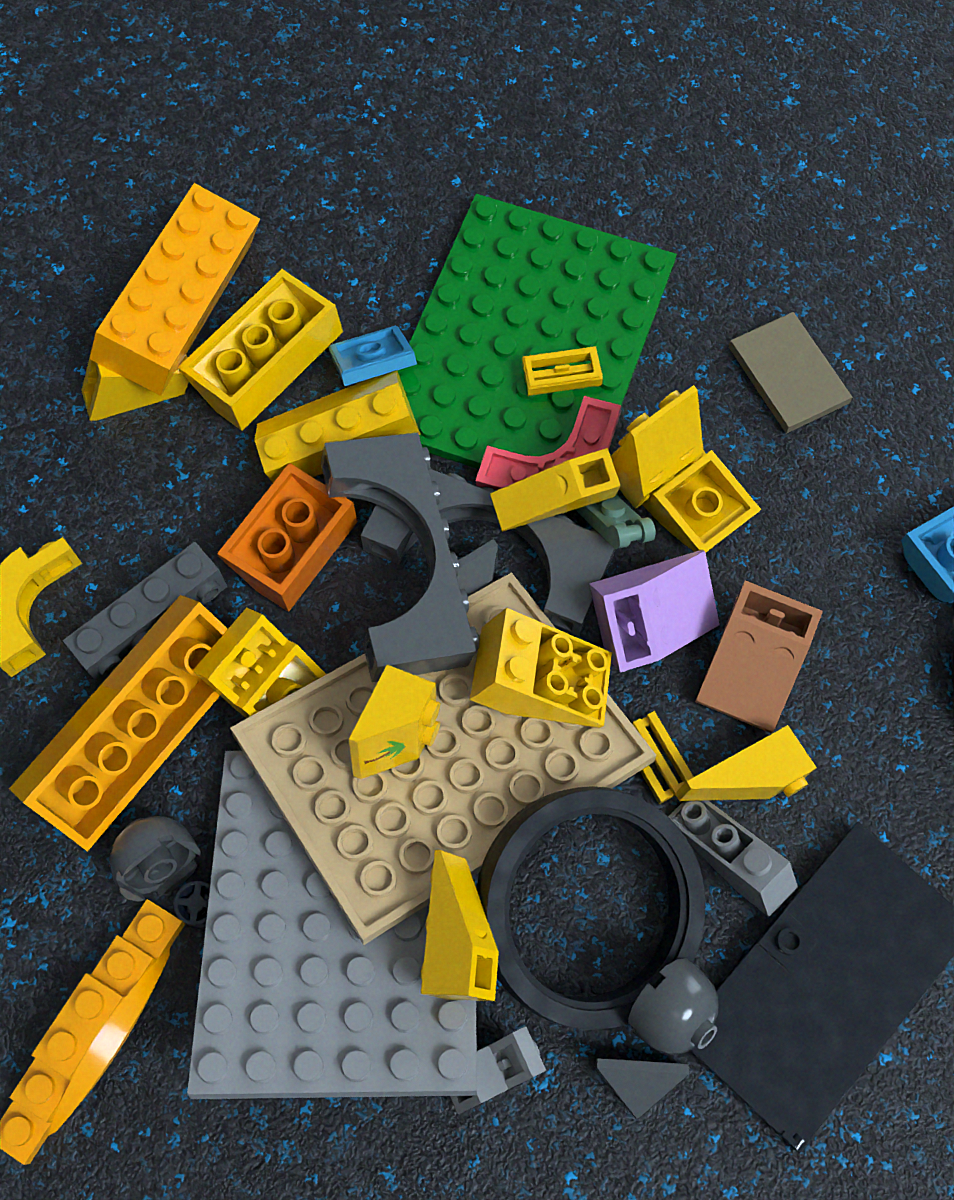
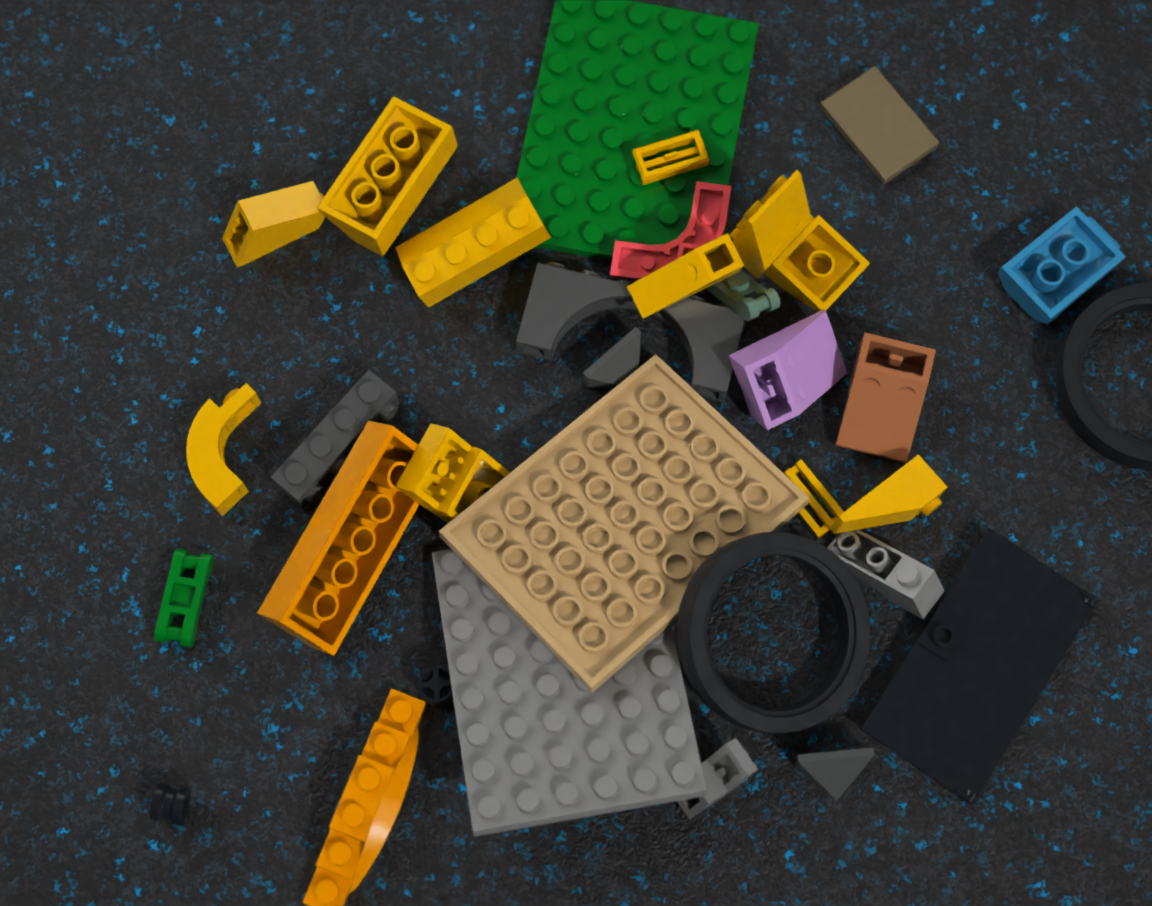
camera: 10 degrees left, 5 degrees up
(152, 857) = (390, 651): dark grey cylinder -> none
(174, 290) = (300, 131): light orange brick -> none
(288, 536) = (451, 351): orange slope -> none
(372, 355) = (491, 167): dark azure plate -> none
(394, 723) = (586, 505): yellow slope -> none
(396, 476) = (541, 284): dark grey arch -> none
(459, 941) = (673, 679): yellow slope -> none
(540, 672) = (698, 441): yellow slope -> none
(678, 1011) = (858, 705): dark grey cylinder -> none

